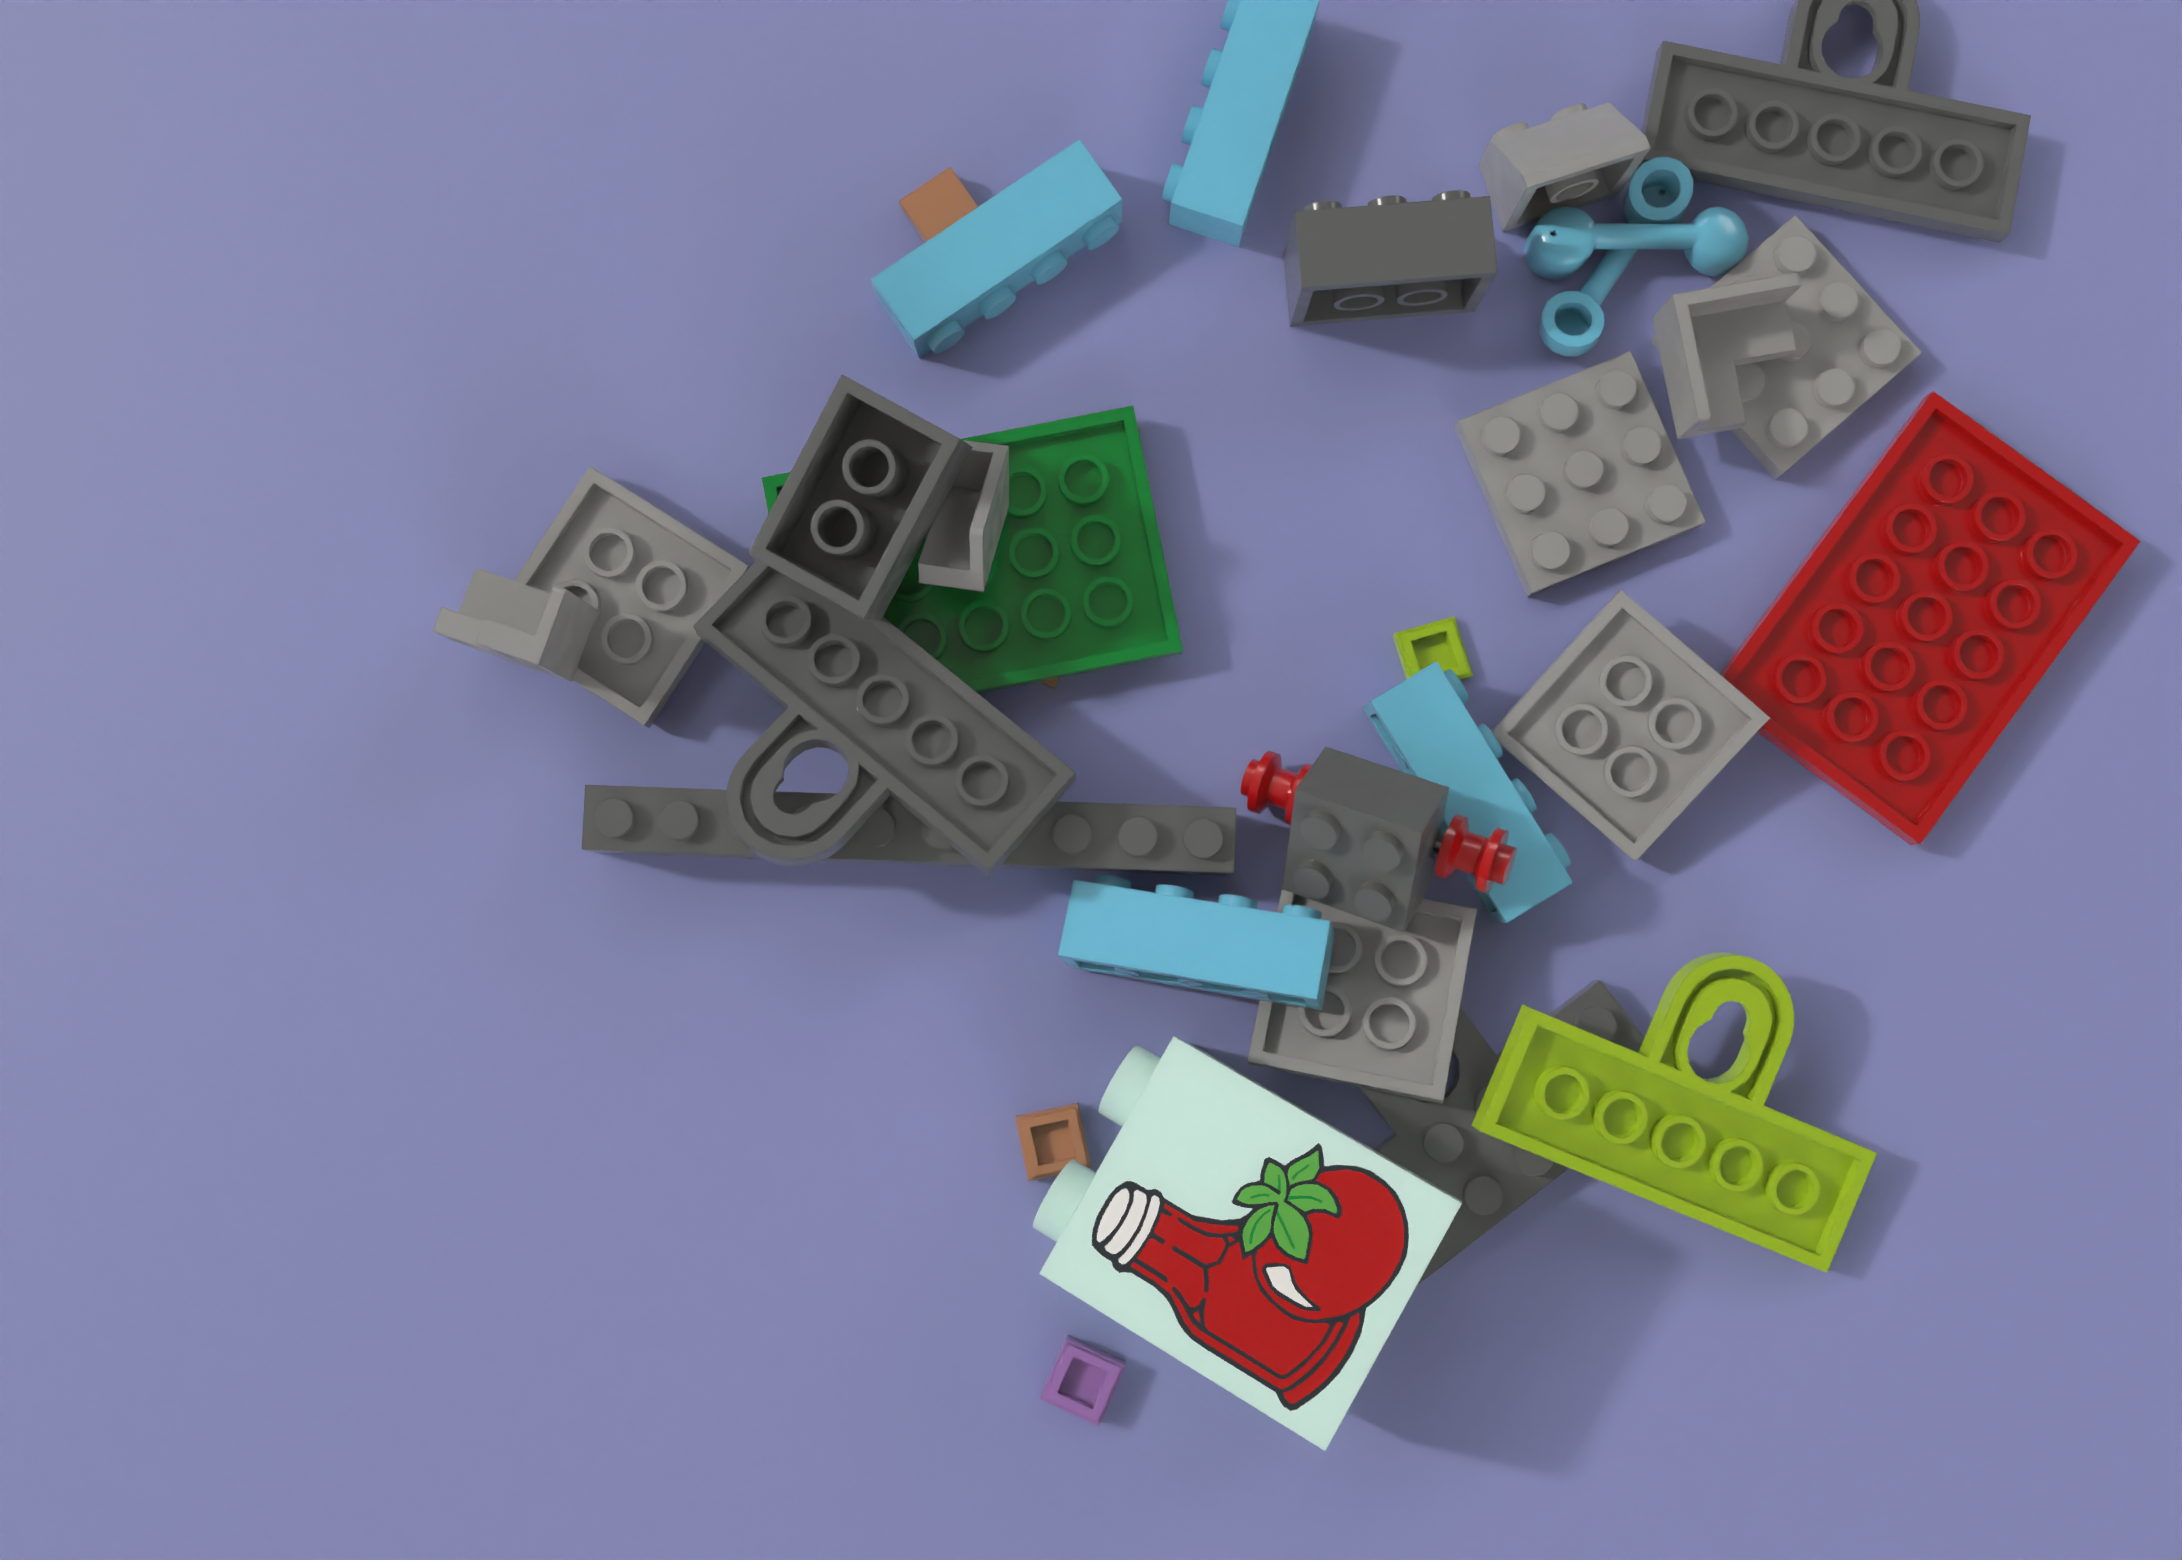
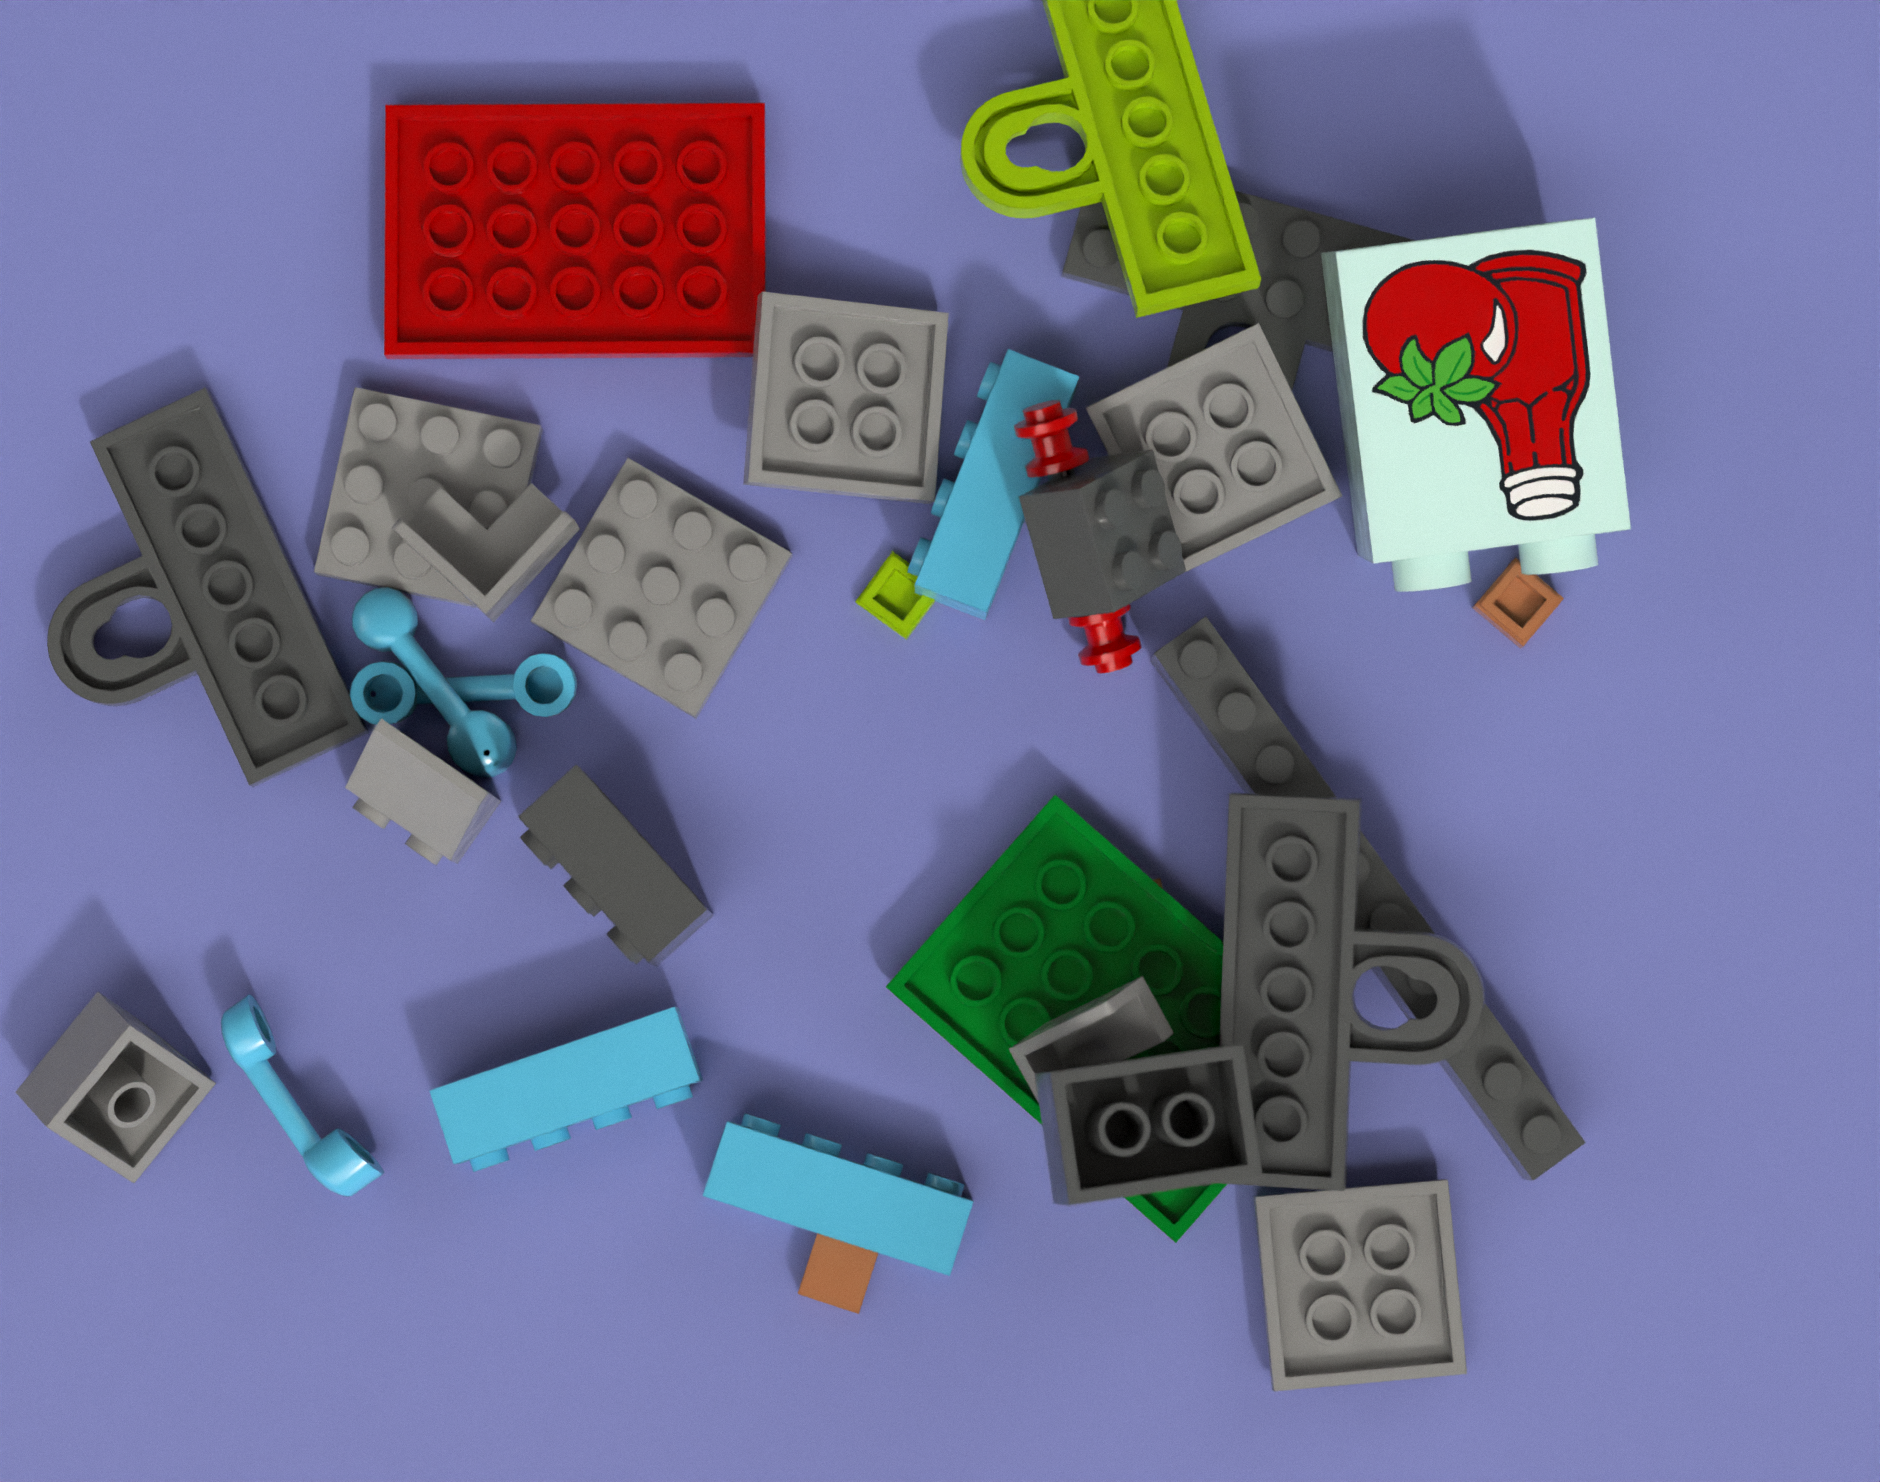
camera: 130 degrees left, 0 degrees up
(521, 623) = (1448, 1338): light grey panel -> none
(1083, 1380) = (1681, 440): medium lavender tile -> none
(1198, 942) = (1281, 604): medium azure brick -> none

